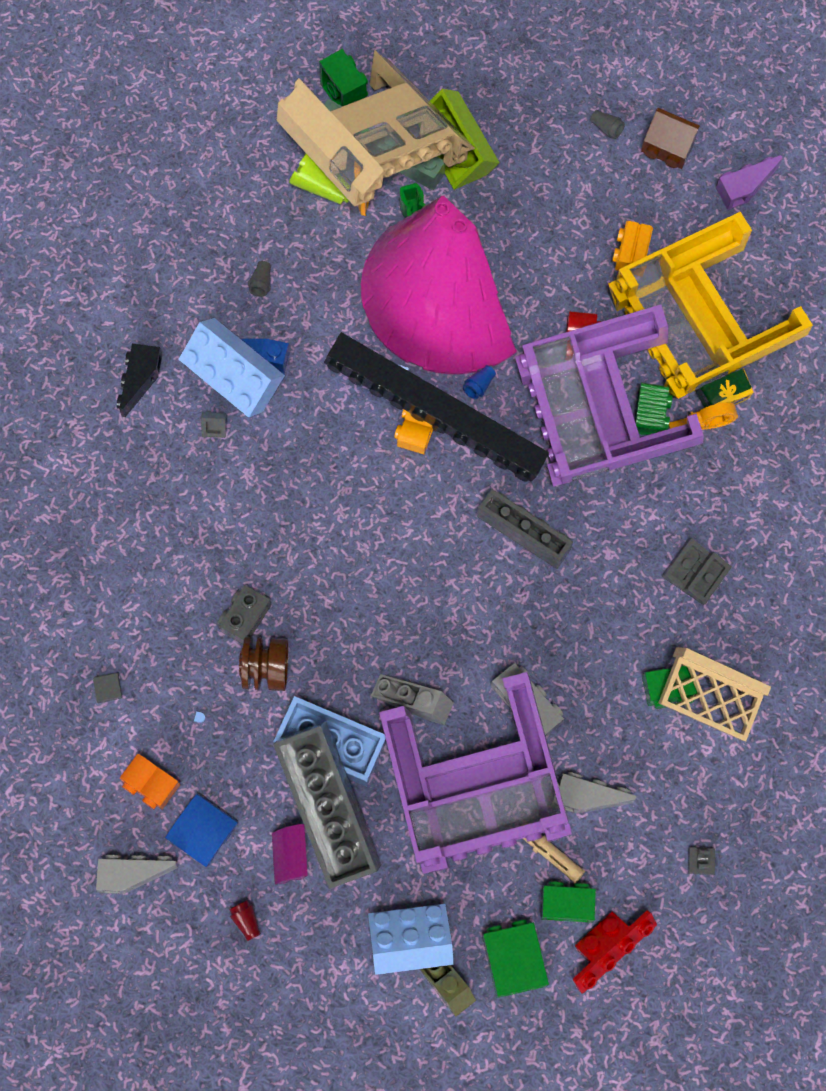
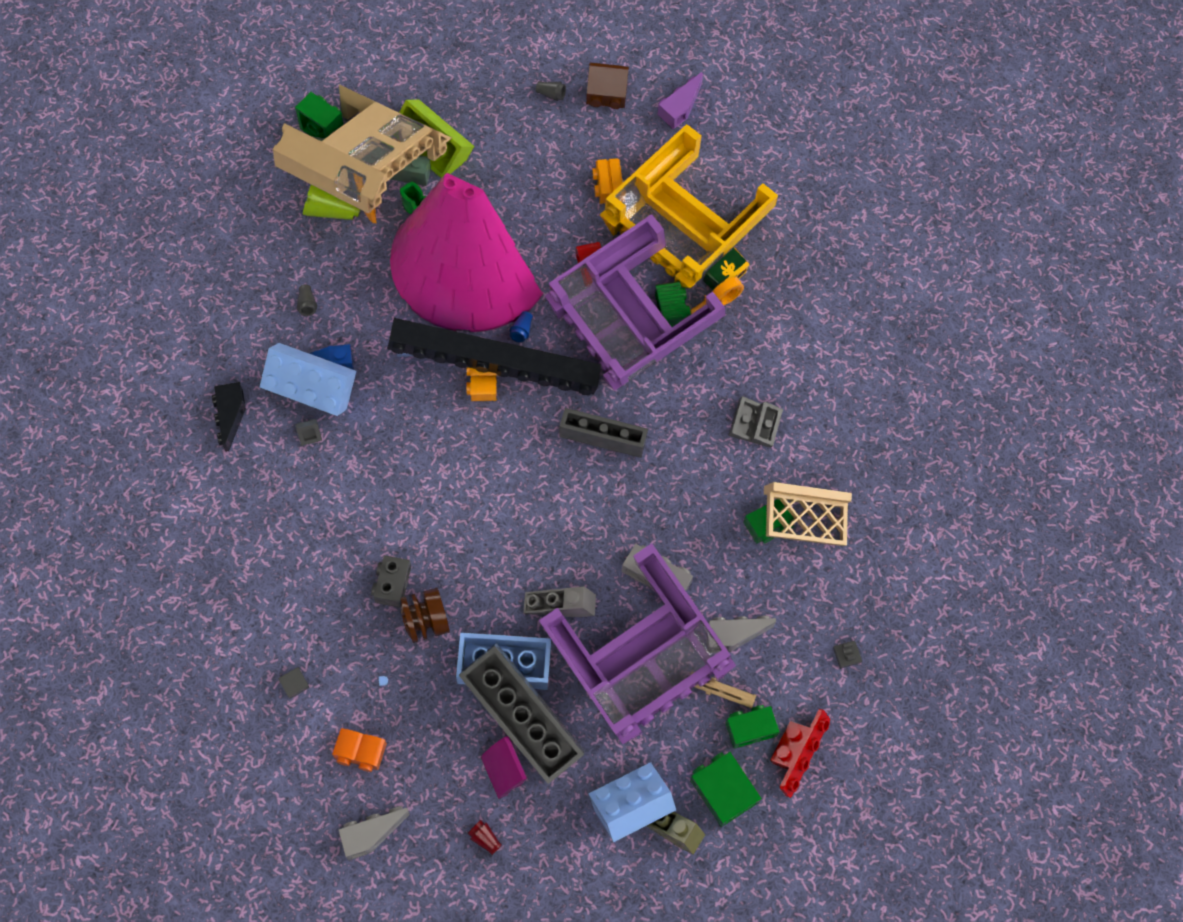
camera: 20 degrees left, 5 degrees down
(201, 830) = (419, 774): blue slope -> none

